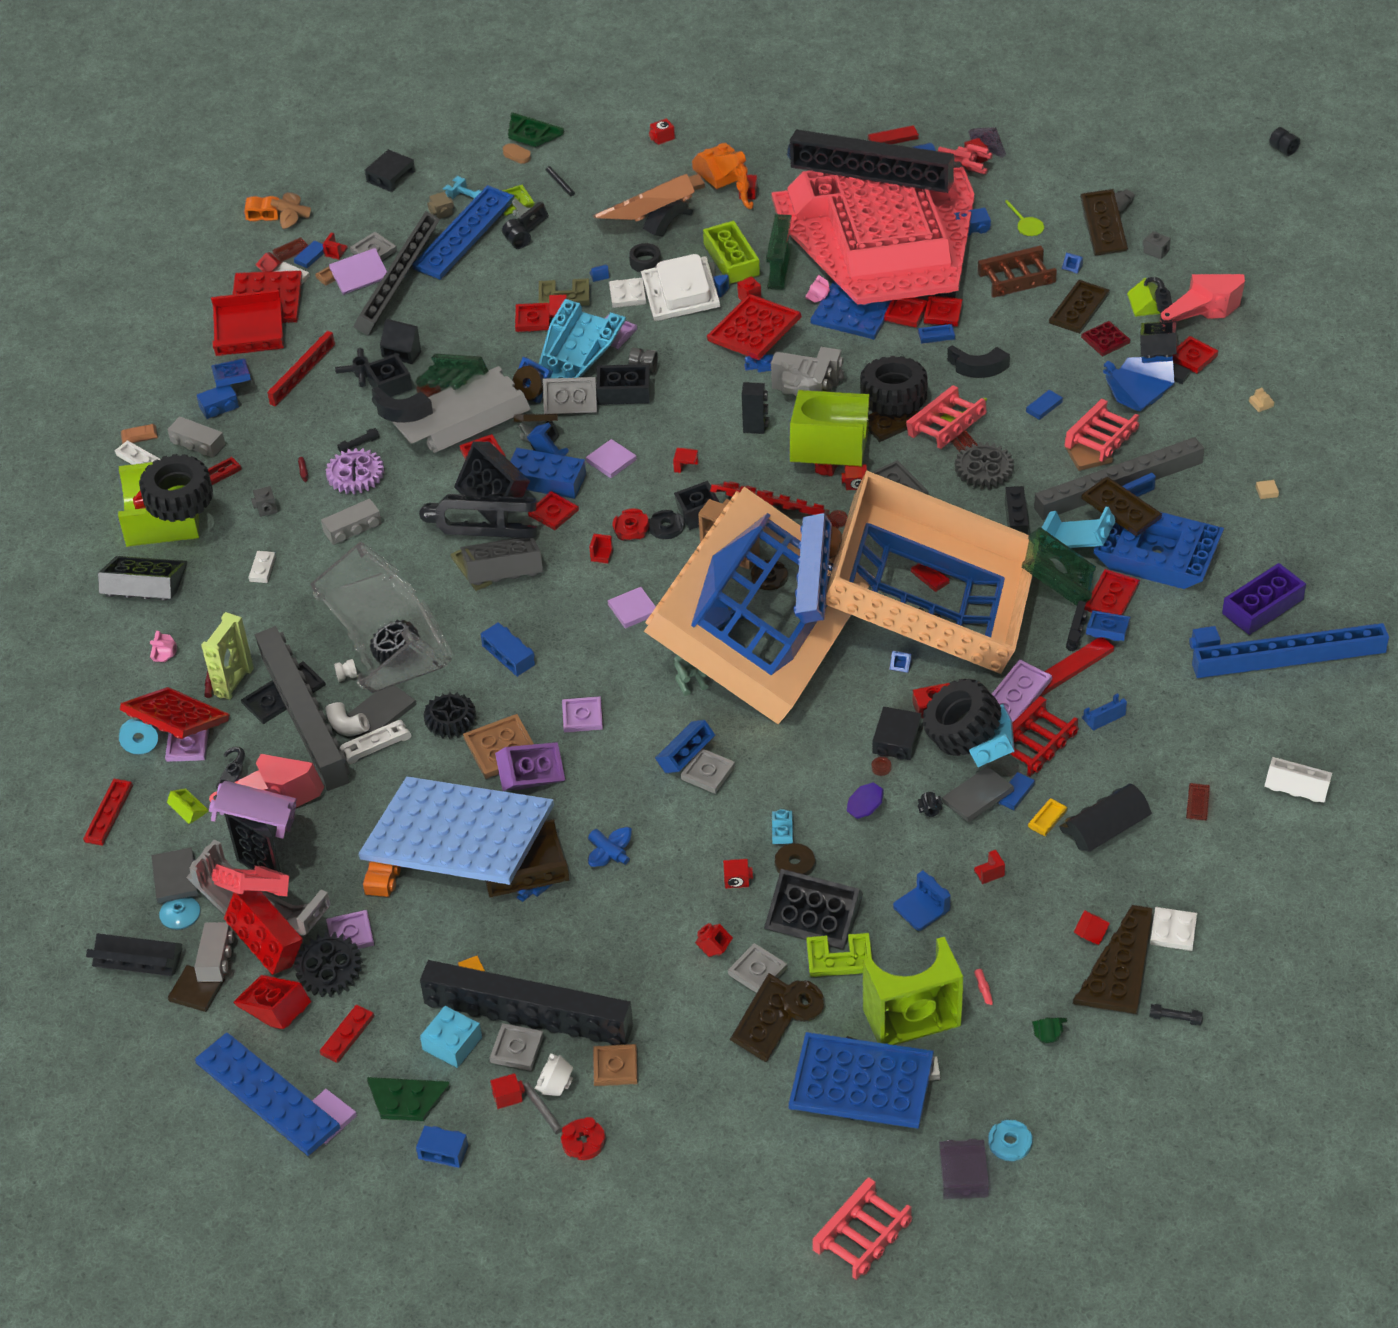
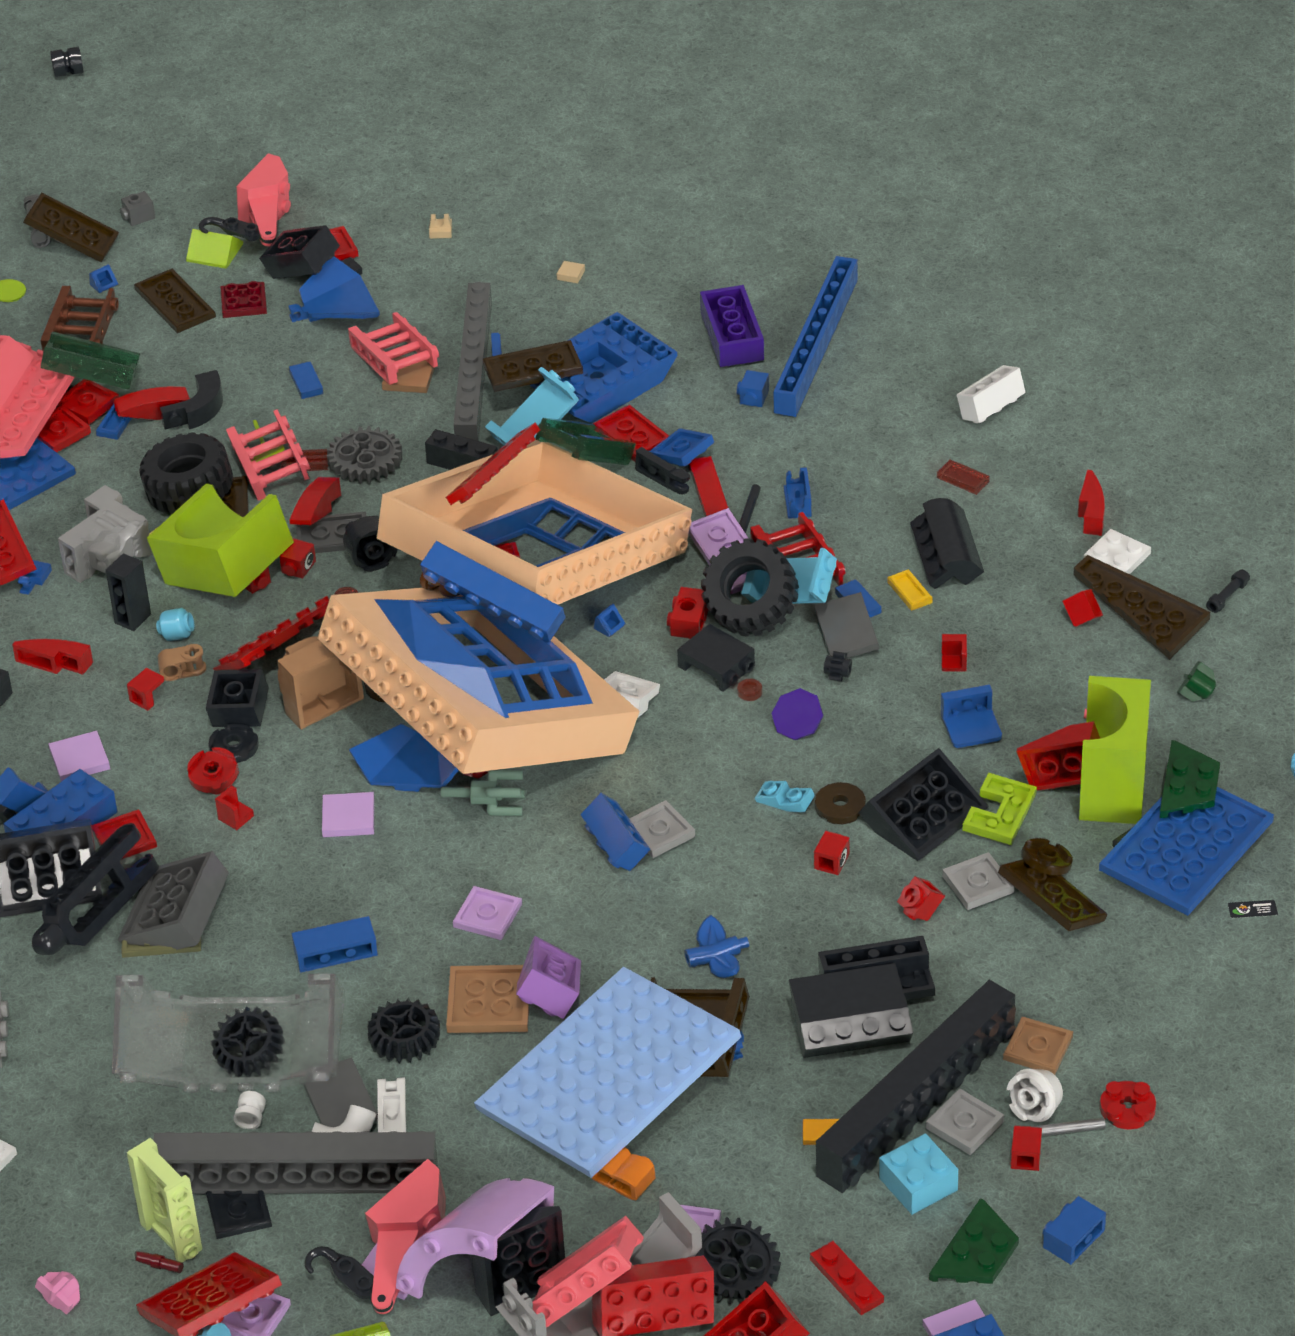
camera: 65 degrees left, 5 degrees down
(578, 938) = (850, 1010): none -> black slope
(623, 942) = (908, 954): none -> black brick
(690, 405) = (53, 655): none -> red slope
(720, 466) = (179, 662): none -> medium nougat piece
(753, 447) = (175, 624): none -> medium azure head
(828, 698) = (634, 689): none -> white plate
(829, 1151) = (1252, 908): none -> black sticker
(896, 958) = (1056, 757): none -> red slope
(915, 460) = (316, 501): none -> red slope
(919, 1056) = (1189, 780): none -> dark green wing
(953, 518) = (493, 465): none -> red plate
(956, 336) = (147, 402): none -> red slope
(973, 278) = (90, 360): none -> clear green fence
(1072, 691) = (749, 507): none -> black bar
(1216, 890) = (1092, 505): none -> red slope

